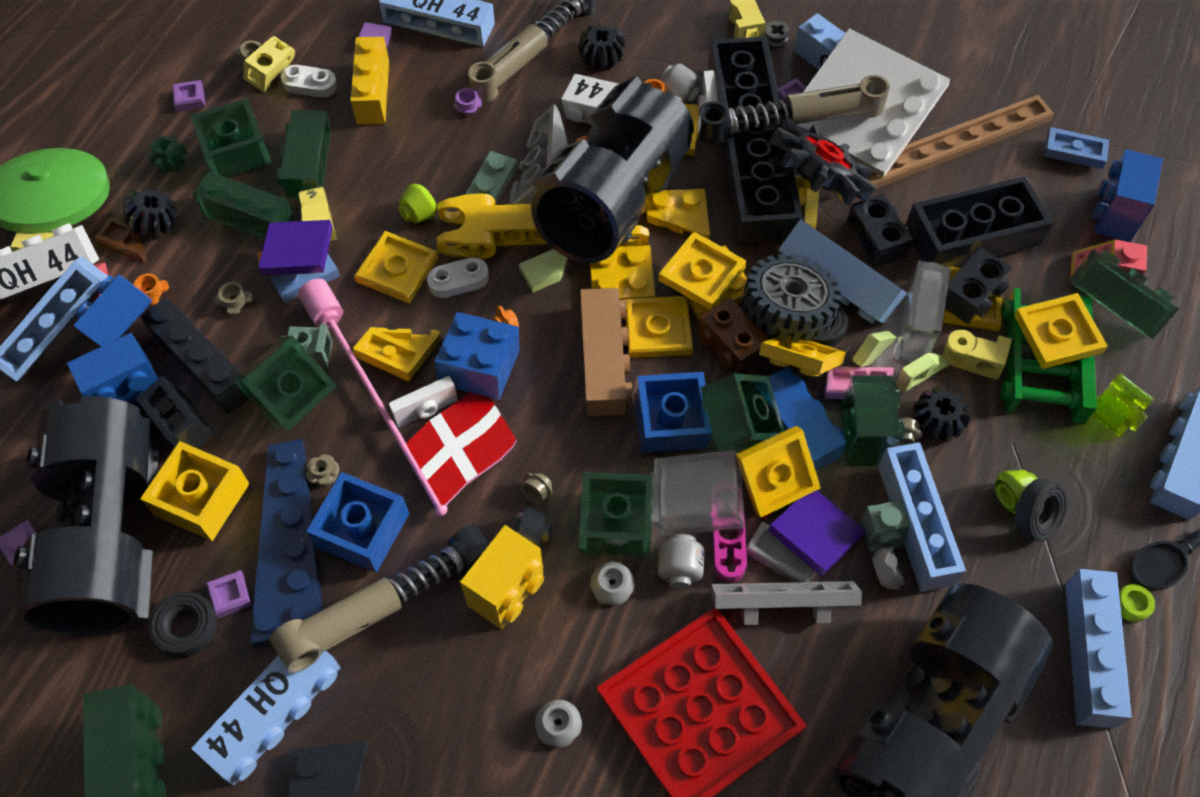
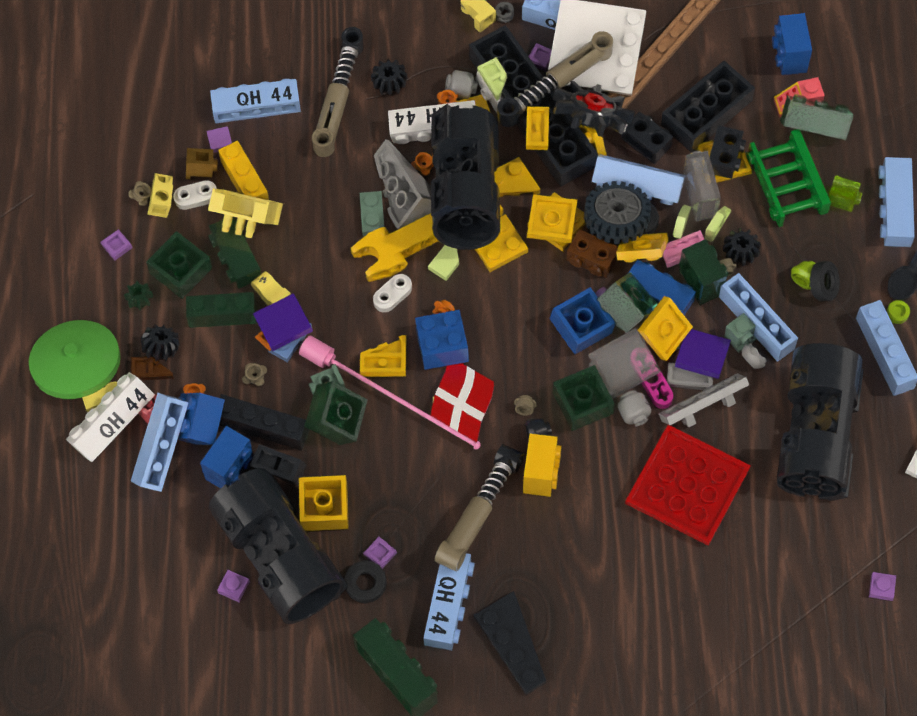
camera: 25 degrees left, 5 degrees up
(287, 558) = (405, 522): dark blue wing -> none
(323, 478) = (387, 461): dark tan plate -> none
(332, 48) = (200, 163): none -> pearl gold brick
(337, 104) = (245, 208): none -> light yellow piece
(358, 522) = (434, 474): blue brick -> none
(396, 267) = (347, 304): yellow tile -> none
(417, 204) = (336, 254): lime cone -> none
(423, 401) = (425, 384): white plate -> none
(467, 101) = (319, 157): medium lavender plate -> none
(560, 735) = (617, 536): light grey plate -> none
(603, 352) = (517, 300): medium nougat brick -> none
(608, 593) = (600, 446): light grey plate -> none
(658, 327) = (540, 267): yellow tile -> none
(720, 80) = (493, 76): none -> yellowish green tile
(739, 155) = (537, 128): none -> yellow plate
(977, 354) = (745, 197): light yellow leg -> none
(1060, 331) = (789, 161): yellow plate -> none
(1076, 148) = (745, 17): medium blue plate -> none

